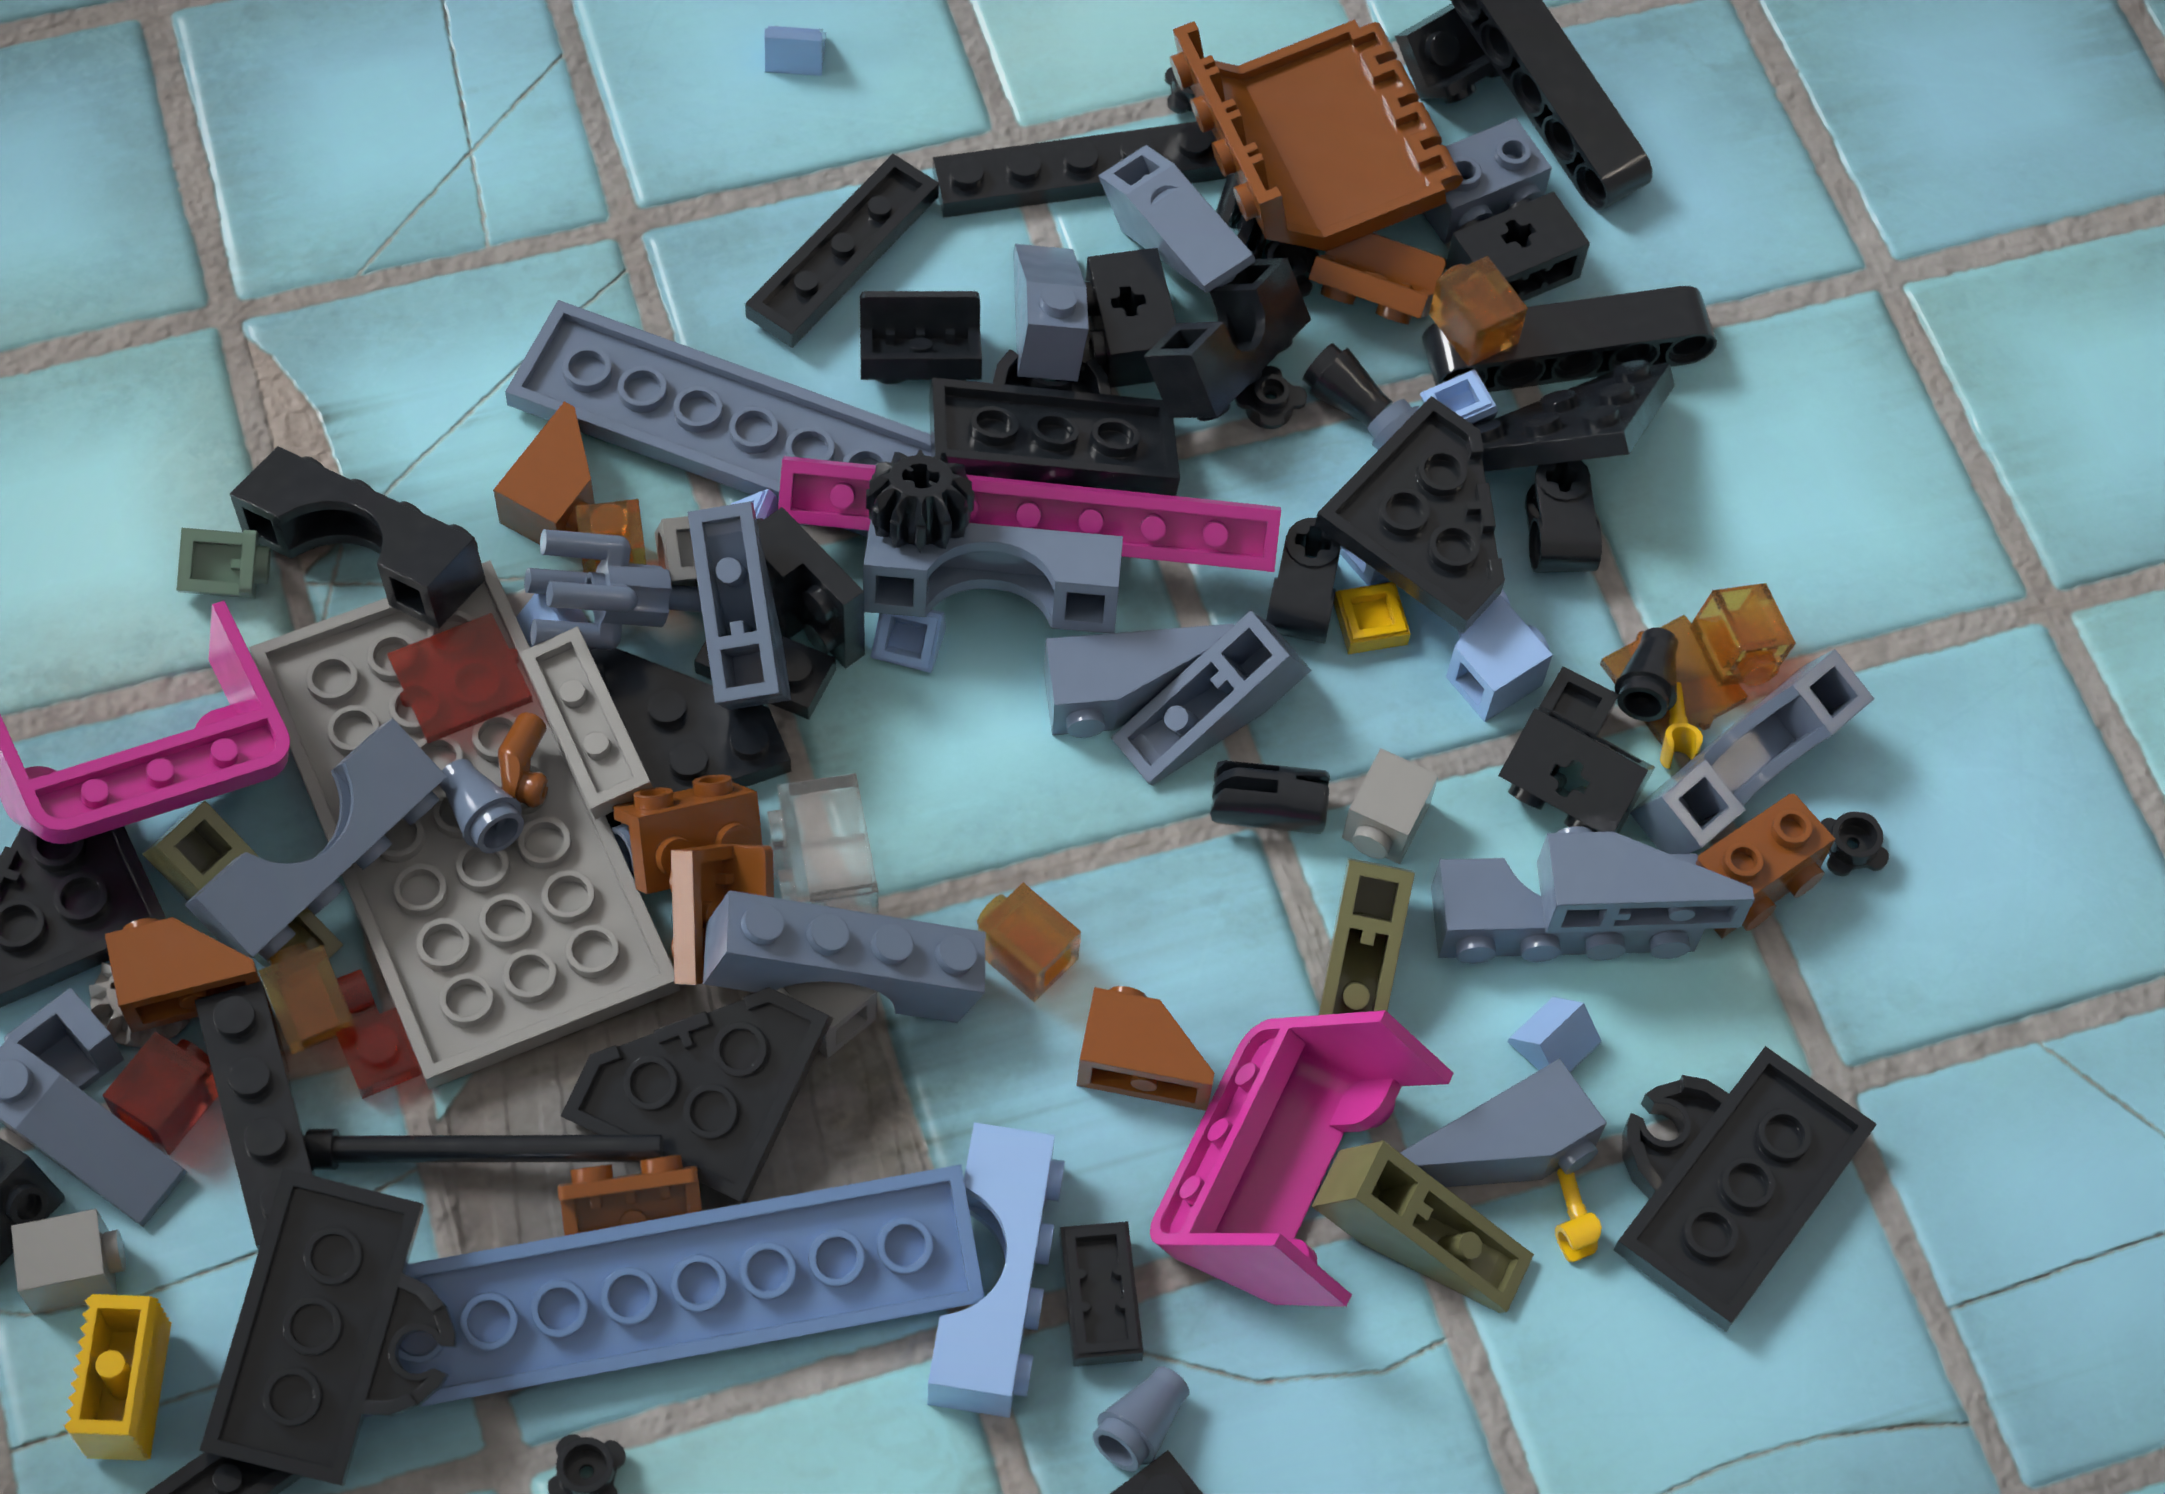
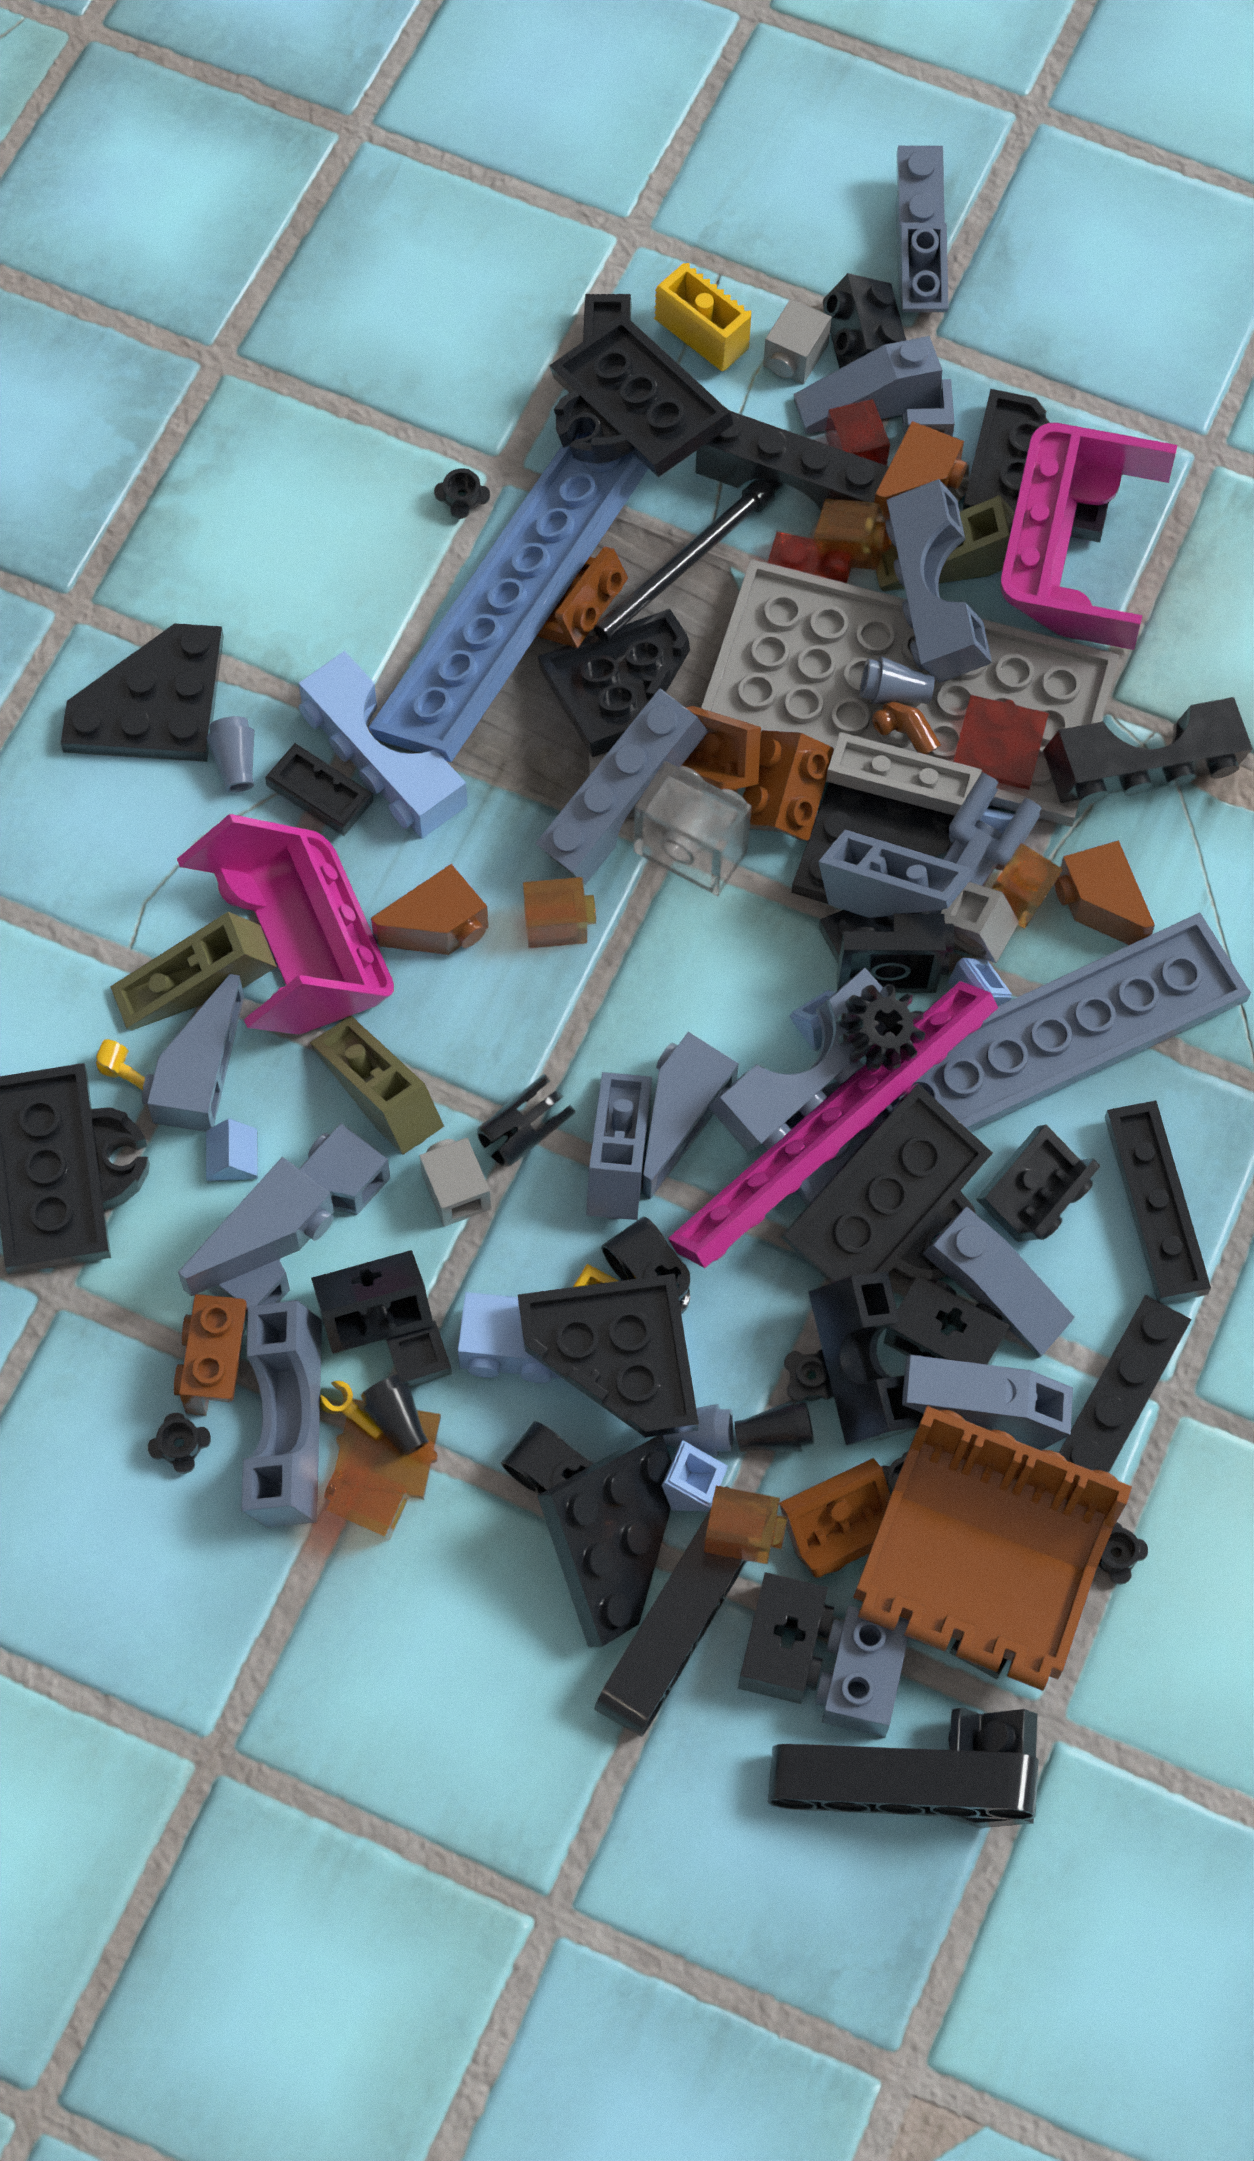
camera: 135 degrees right, 5 degrees up
(222, 563) = (1197, 680): sand green bracket -> none

